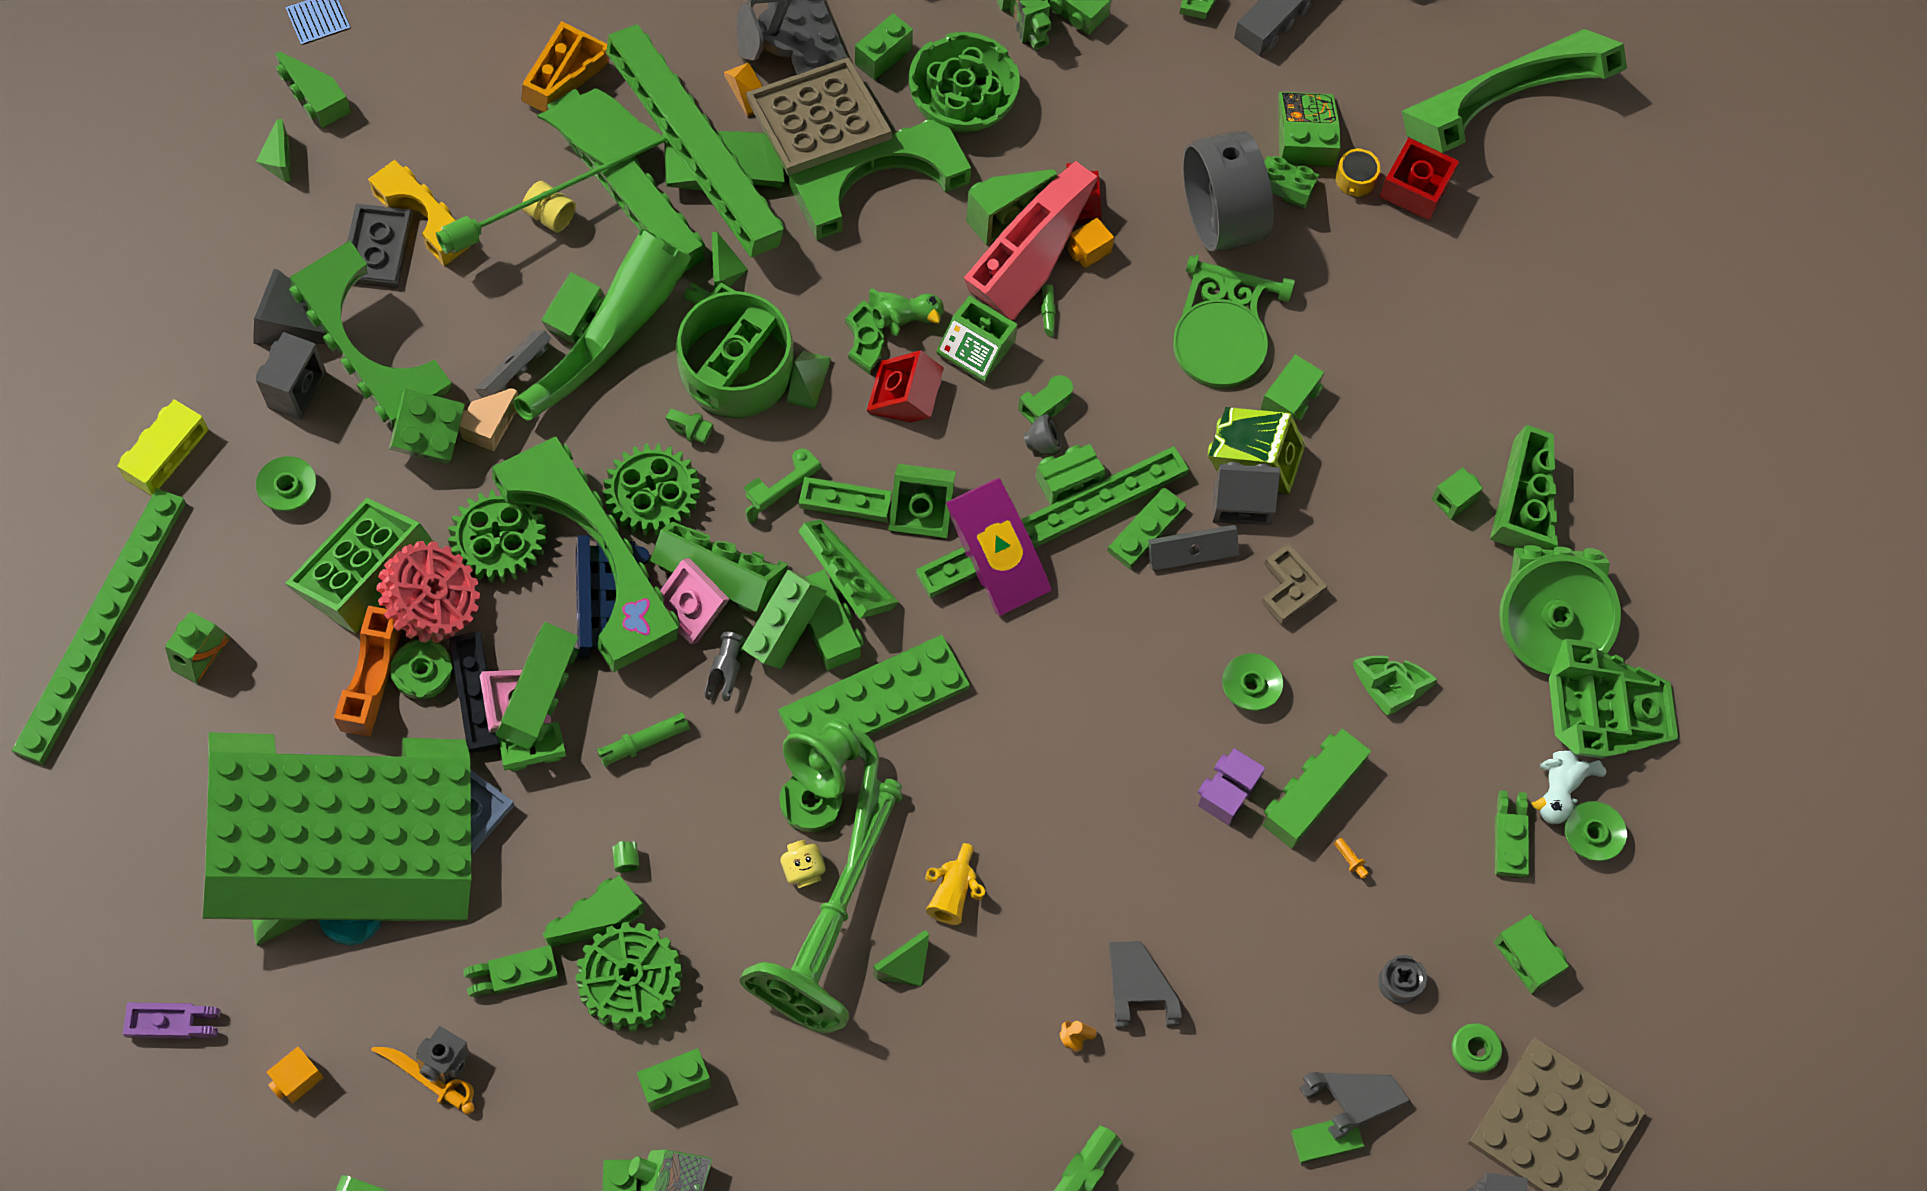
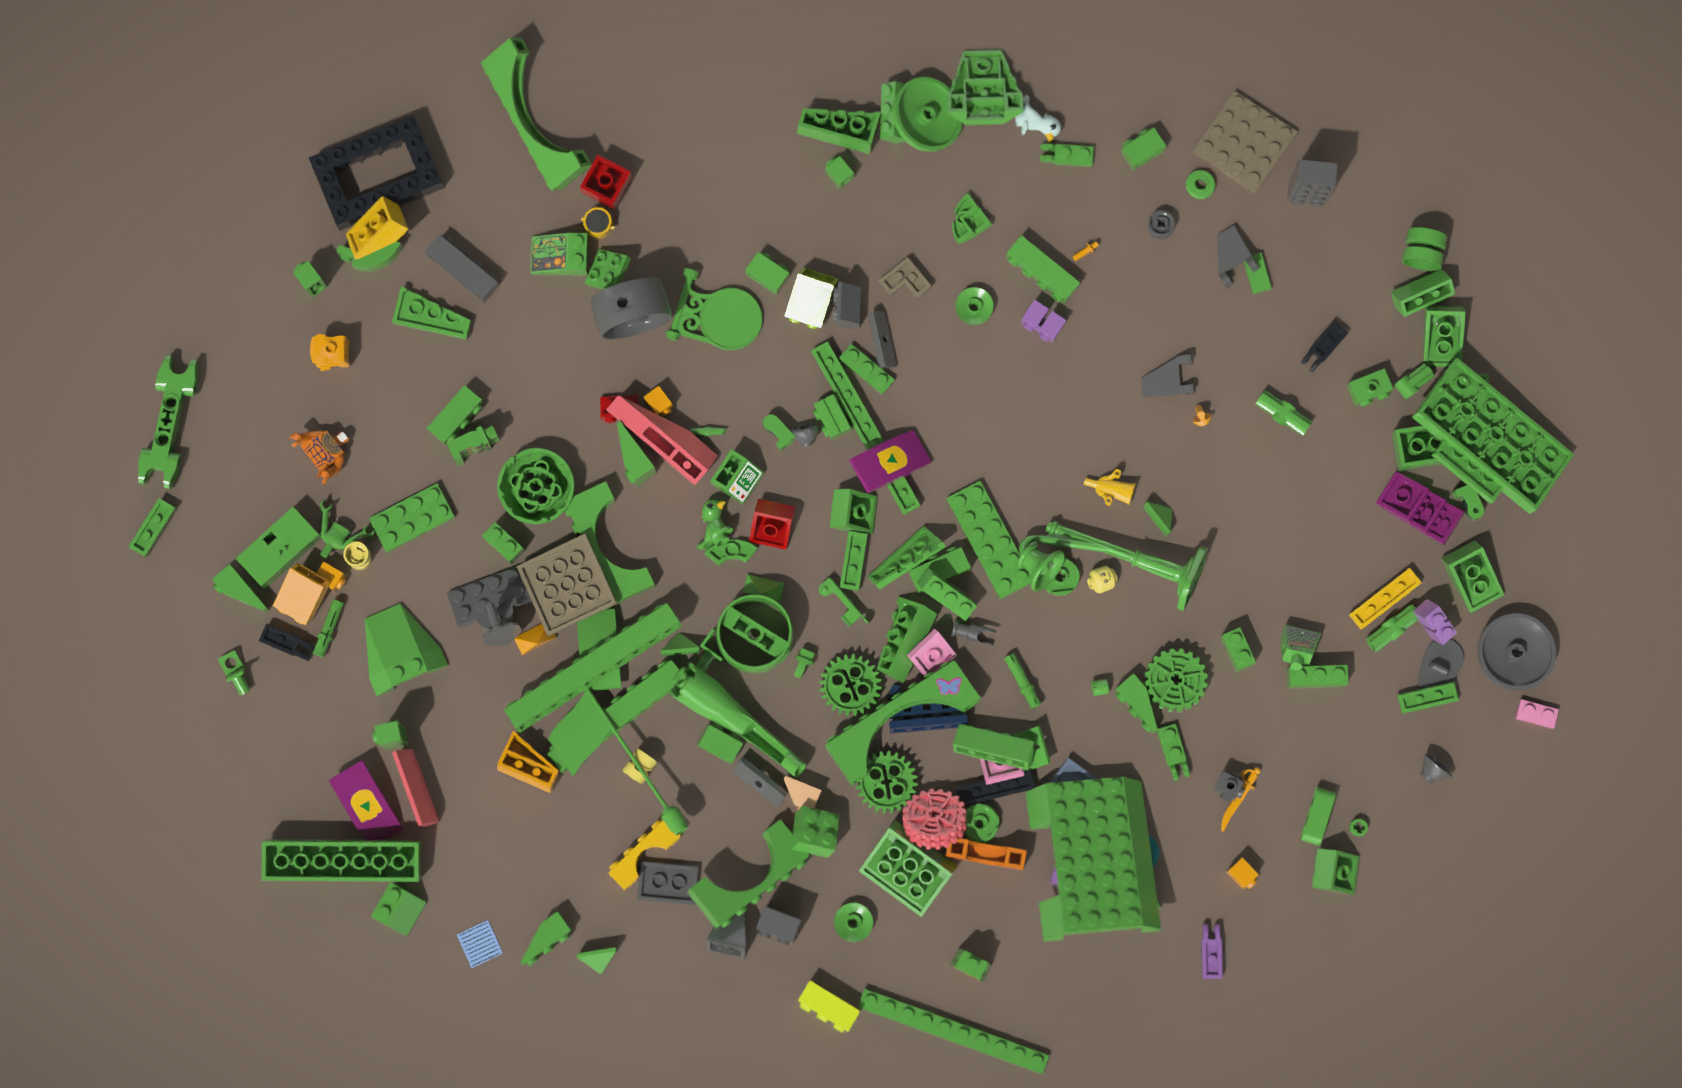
camera: 85 degrees left, 15 degrees up
(1604, 822) = (1067, 96): bright green dish -> none

